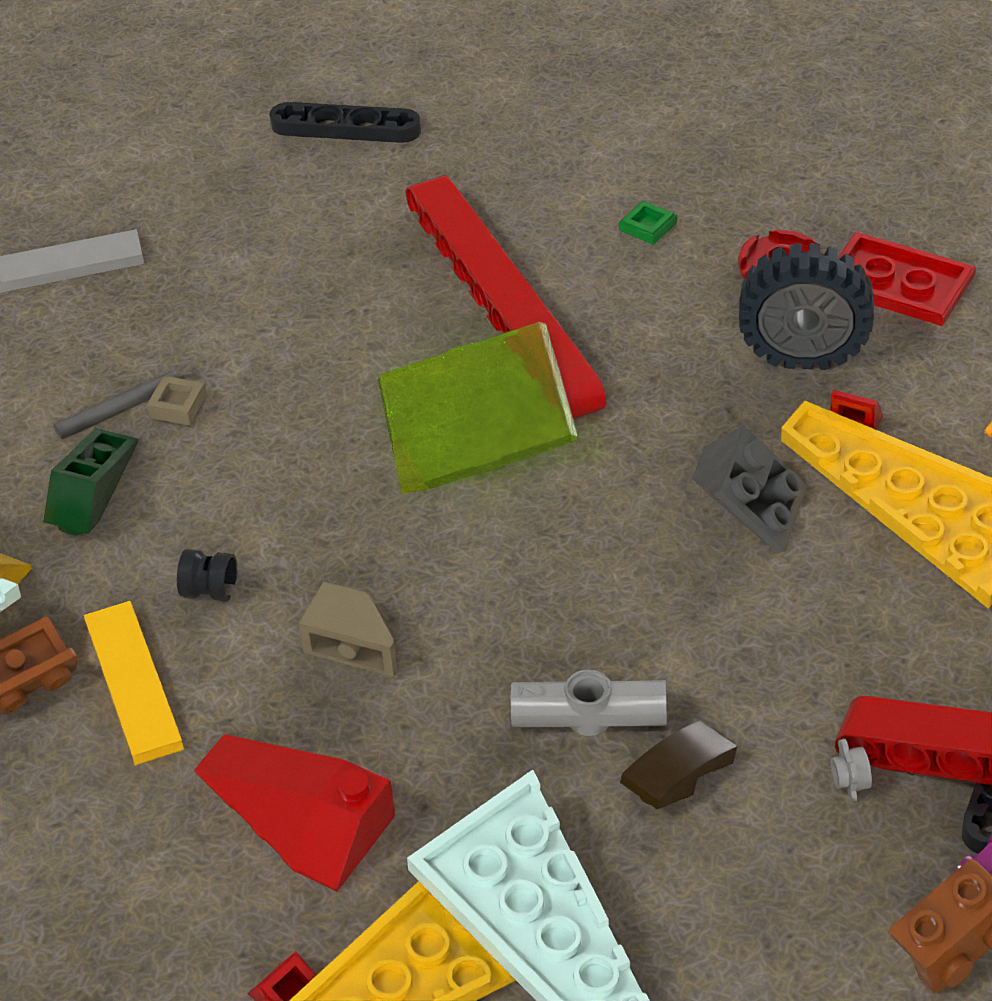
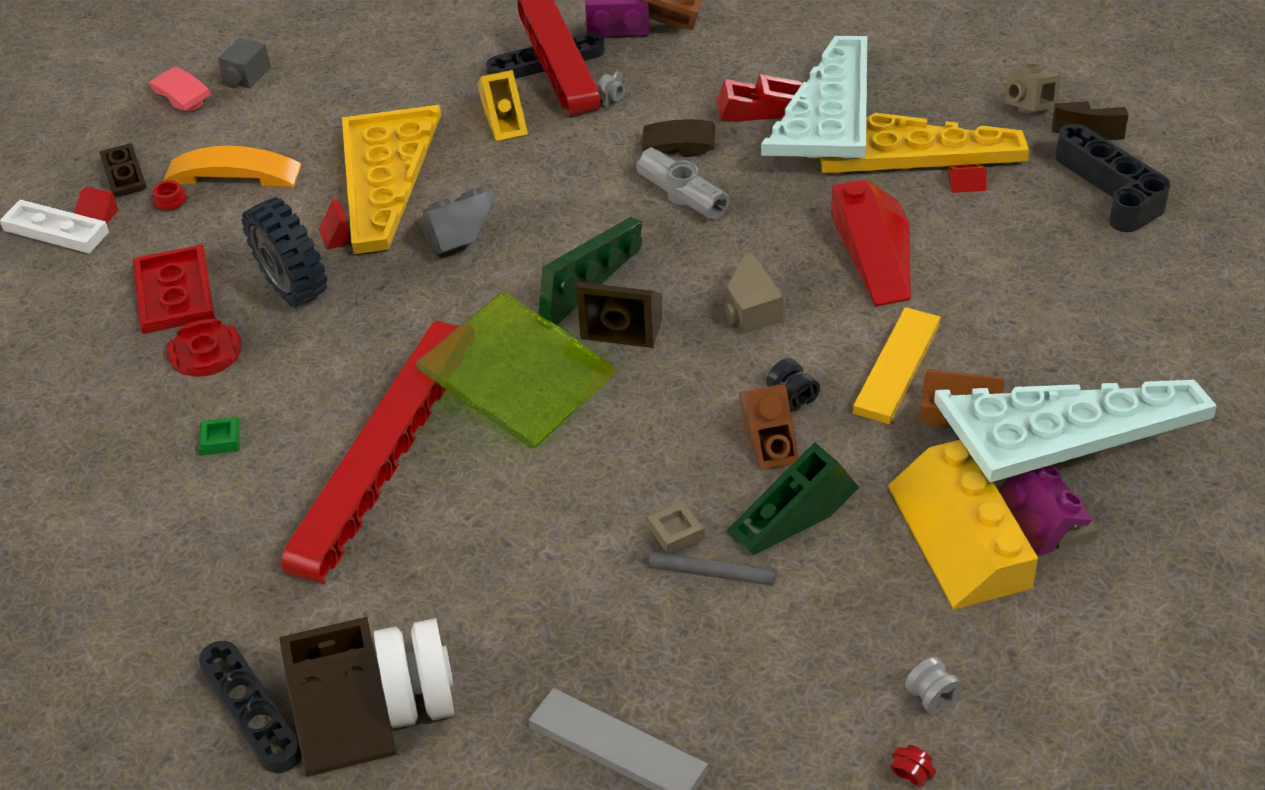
camera: 135 degrees left, 0 degrees up
(190, 519) = (769, 425): none -> dark orange slope
(233, 171) = (414, 673): none -> white wheel
(289, 151) = (337, 696): none -> dark brown slope
(438, 503) = (619, 314): none -> dark brown slope
(540, 542) = (587, 263): none -> dark green wing
(659, 896) = (753, 102): none -> red slope
(932, 648) = (502, 105): none -> yellow slope

